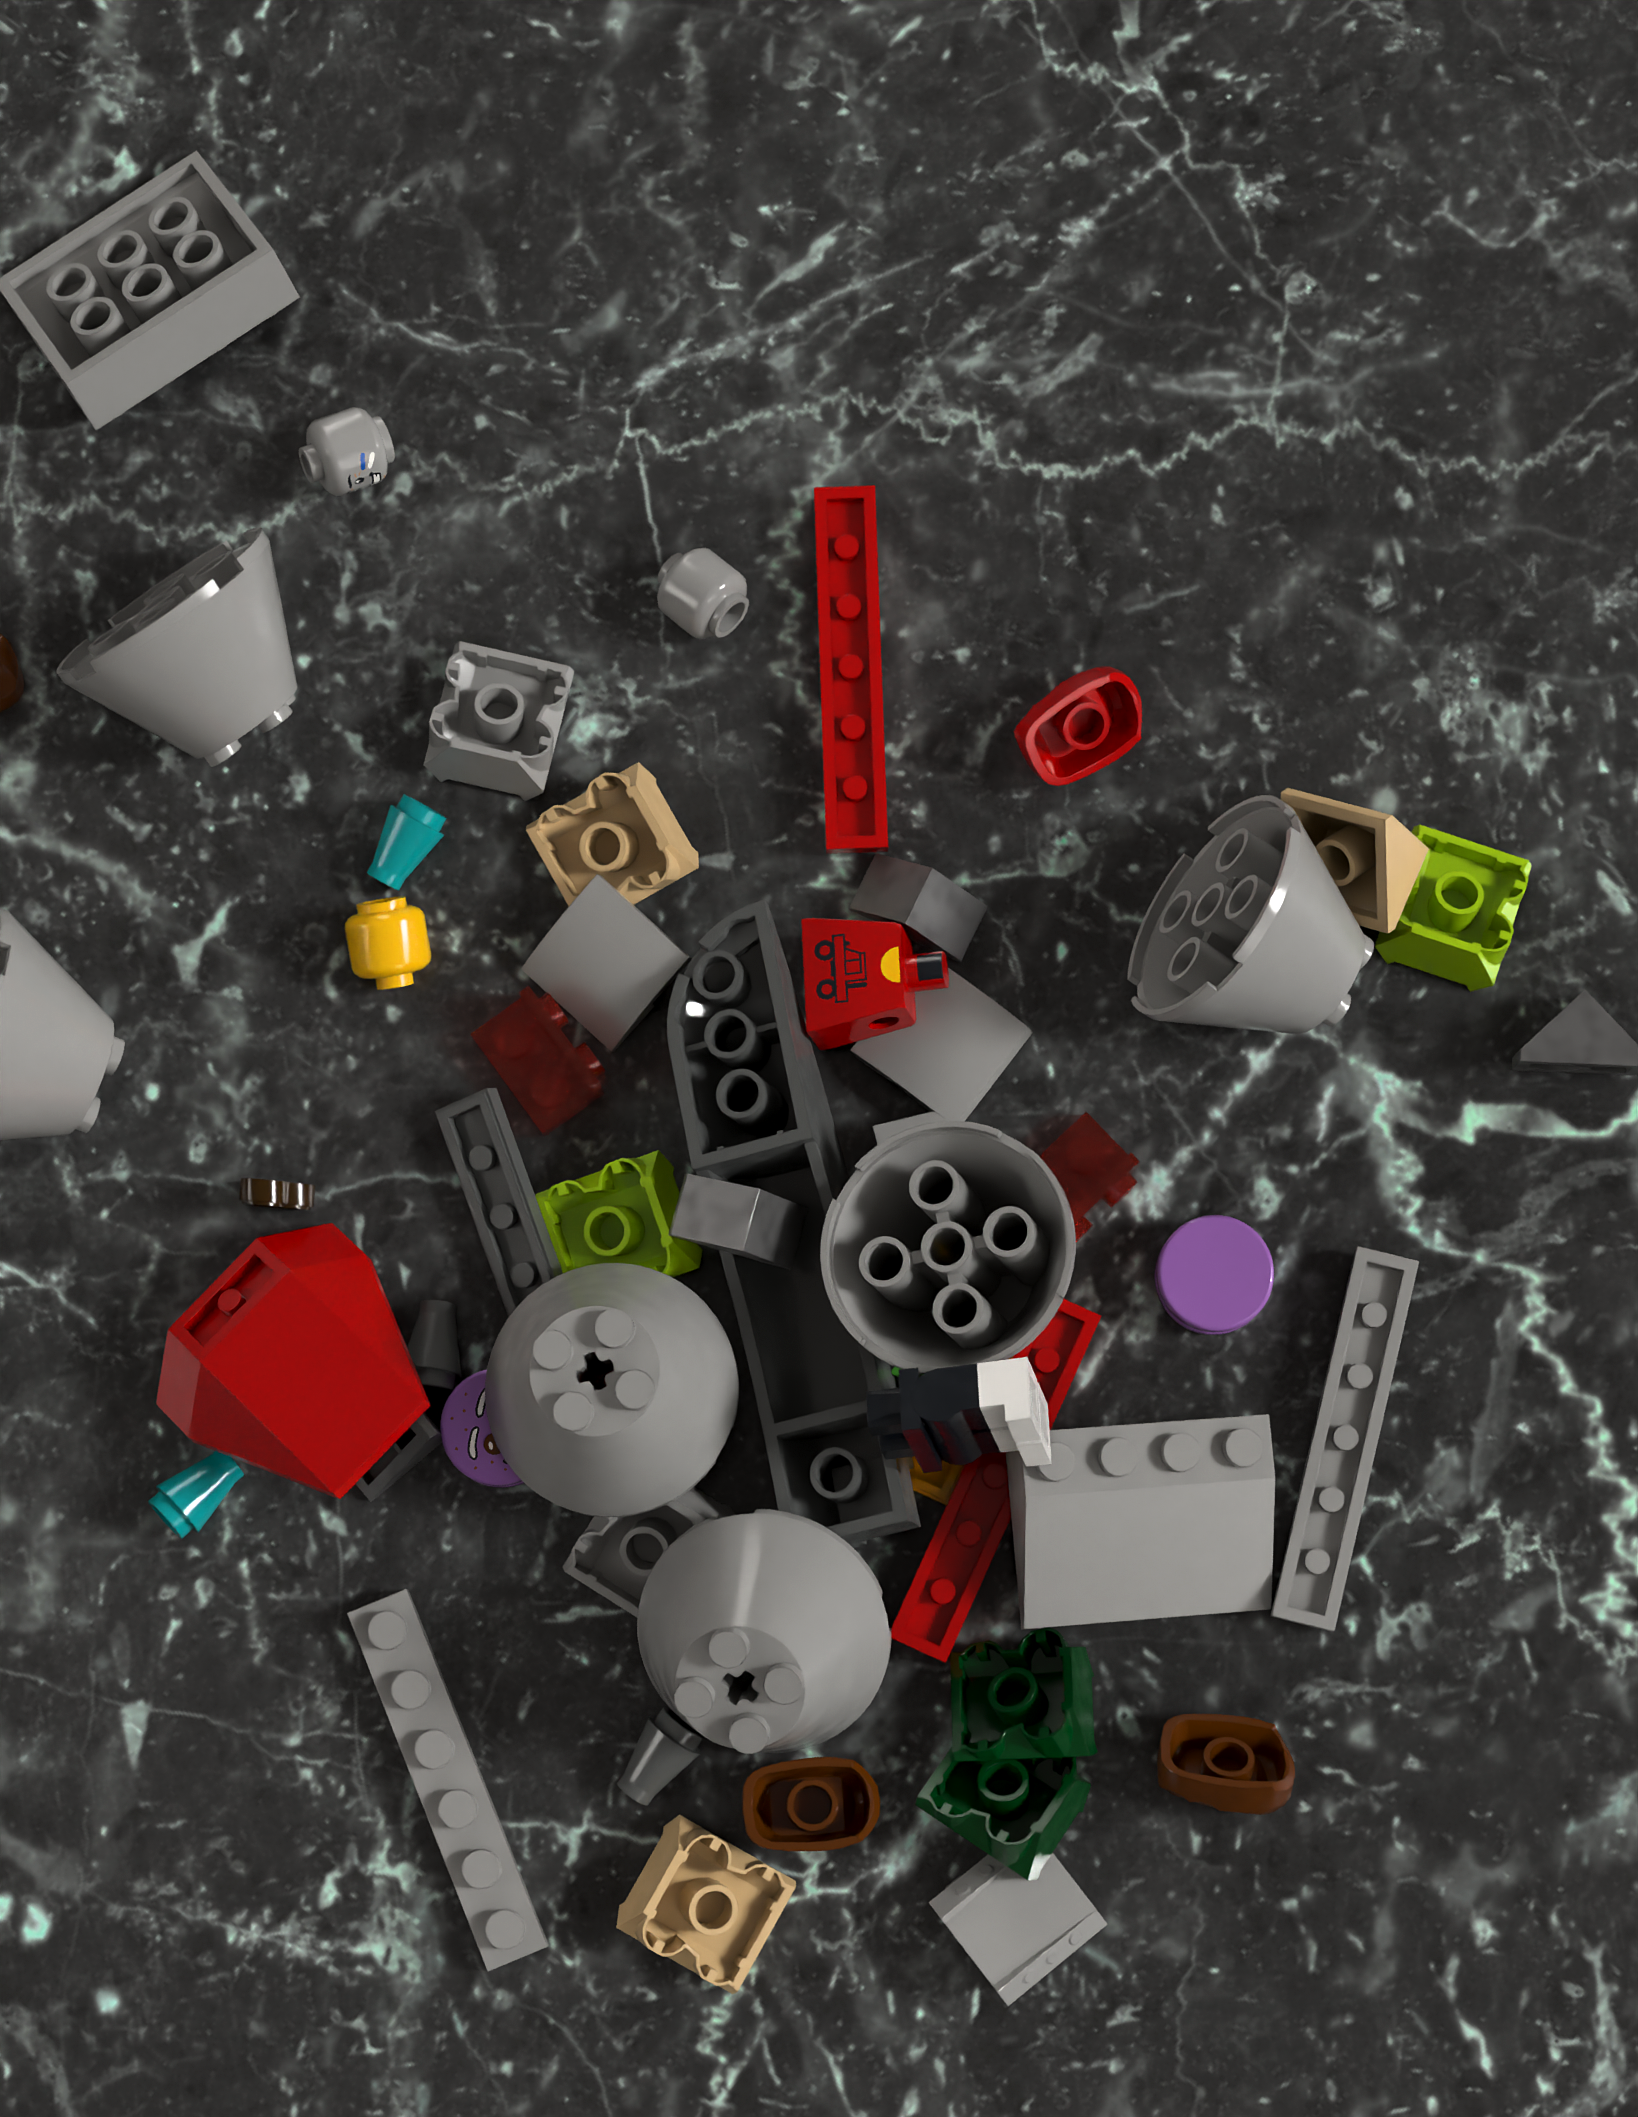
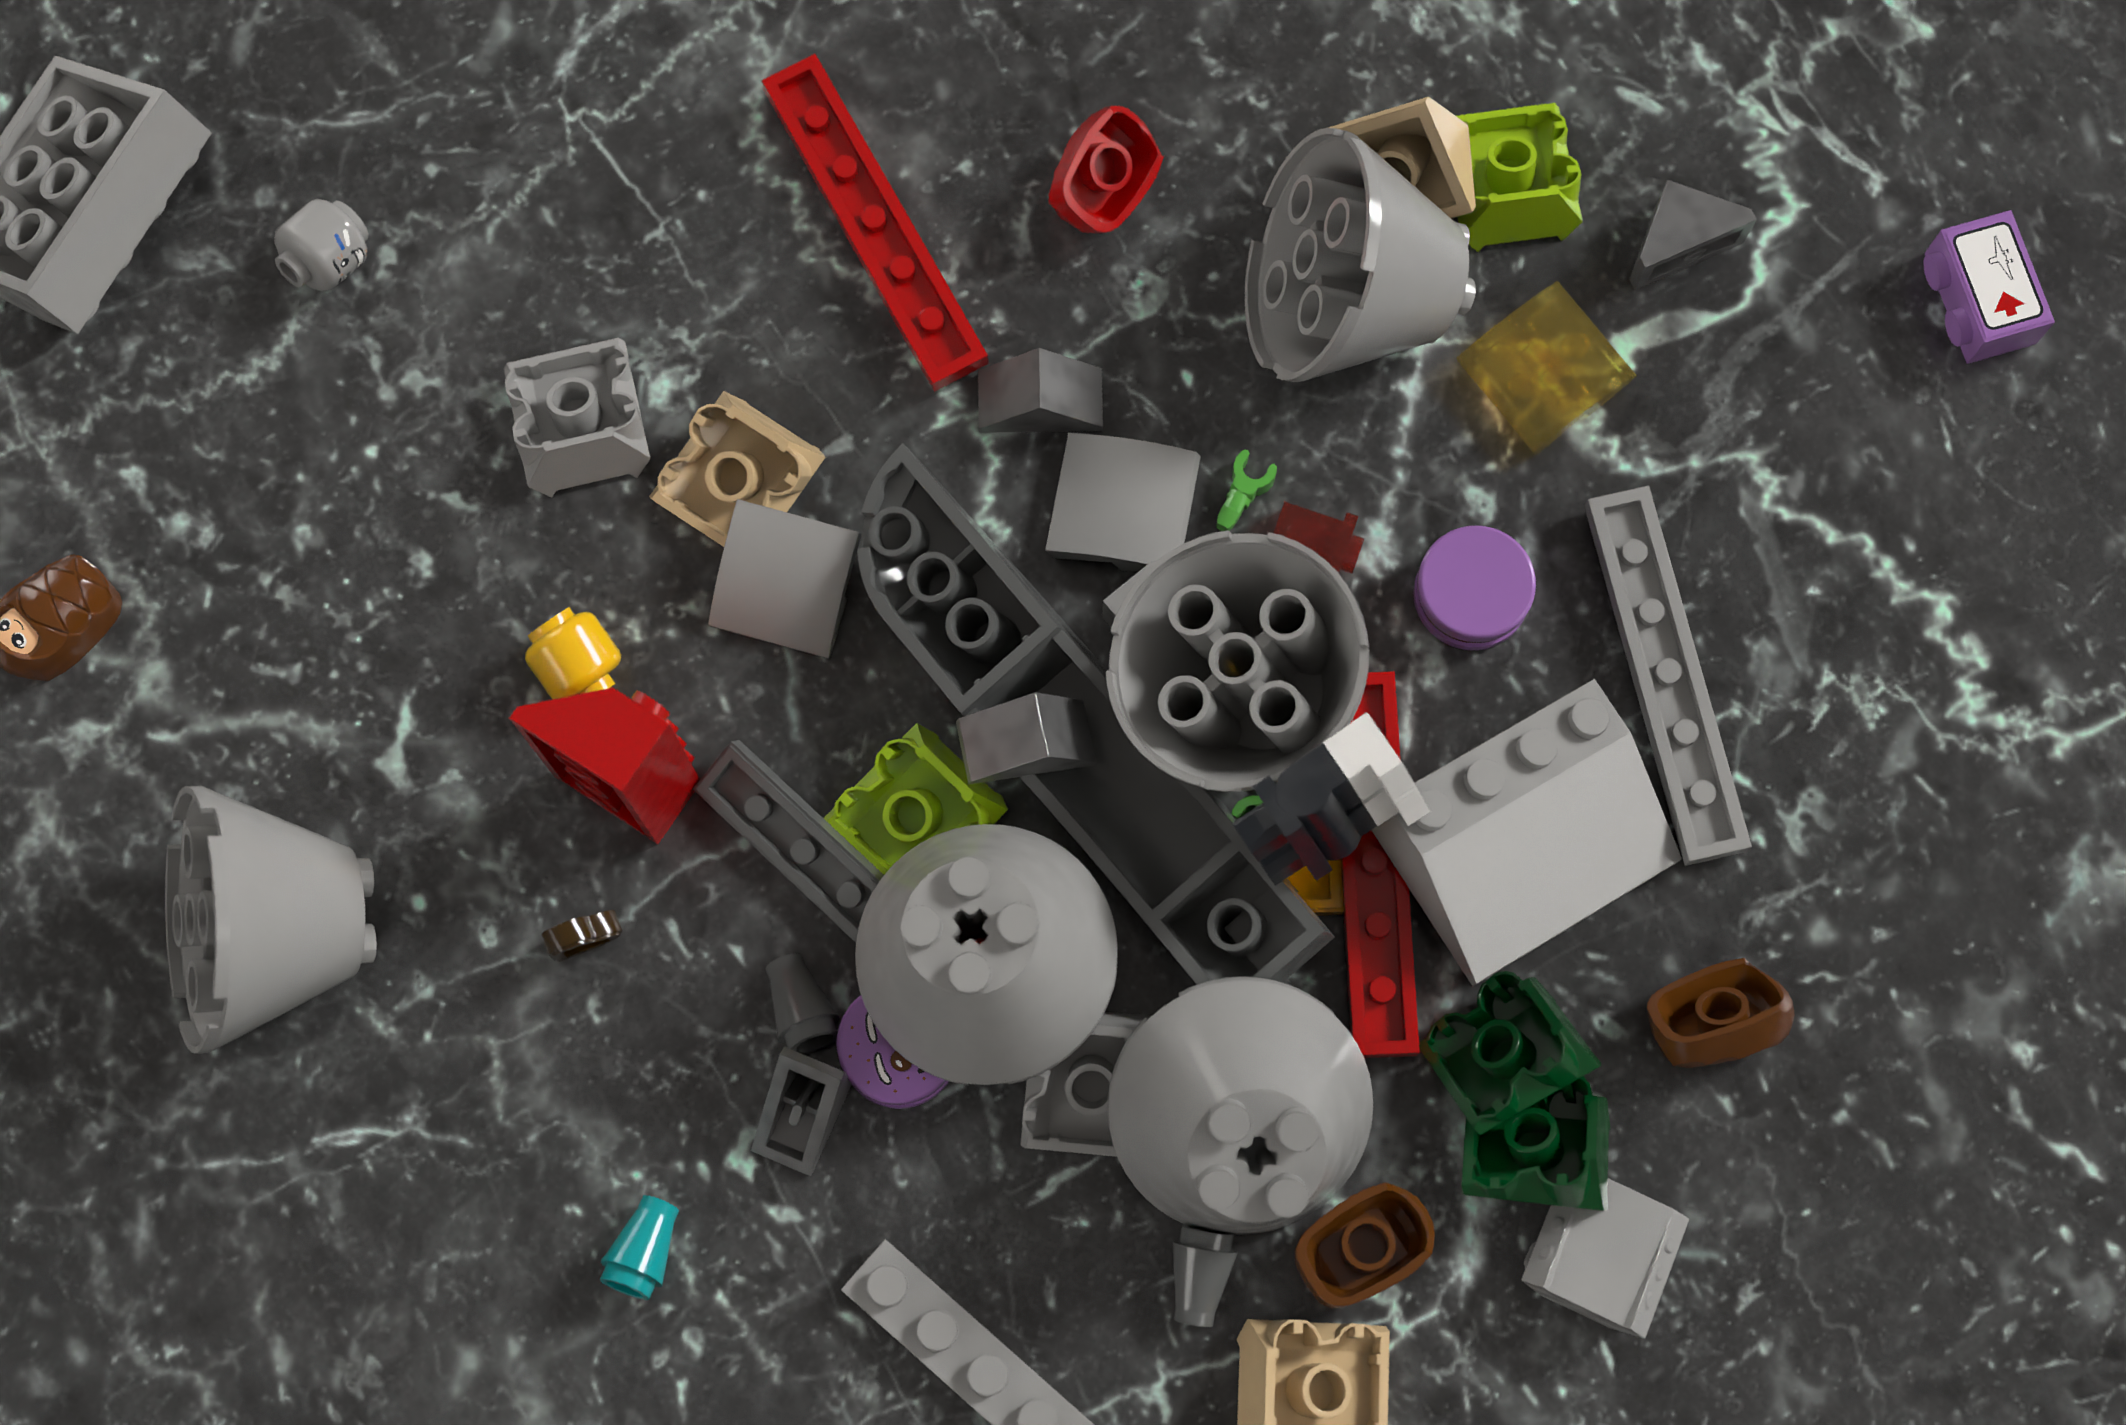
camera: 30 degrees left, 5 degrees down
(197, 654) = (270, 478): light grey cone -> none
(294, 1362) = (676, 1078): red wedge -> none
(378, 1065) = (614, 754): none -> red slope
(405, 841) = (544, 559): teal cone -> none
(539, 1061) = (767, 695): clear red bracket -> none
(702, 593) = (707, 217): light grey head -> none
(863, 979) = (1026, 477): red torso -> none
(1054, 1083) = (1242, 492): none -> bright green piece
(1388, 1104) = (1546, 366): none -> clear yellow slope

